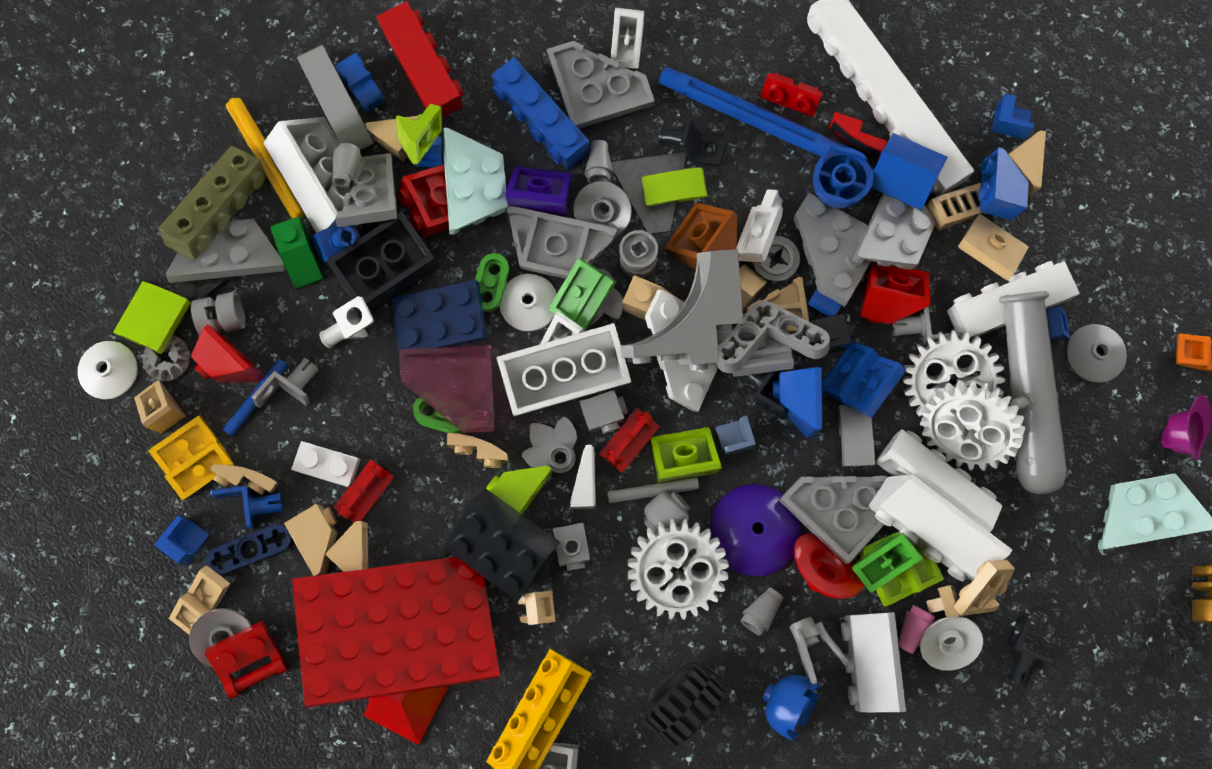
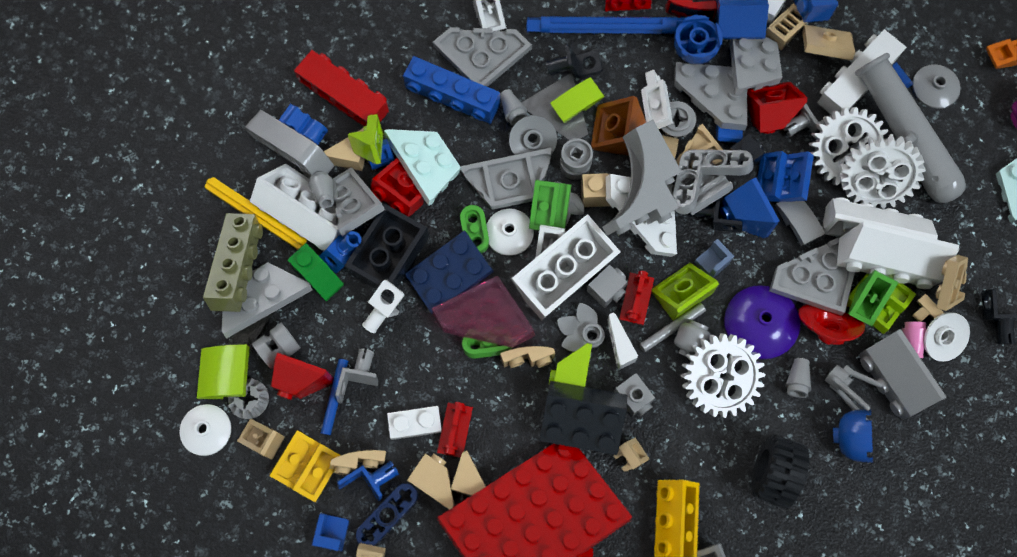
camera: 25 degrees left, 5 degrees down
(539, 190) = (479, 145): dark purple slope -> none

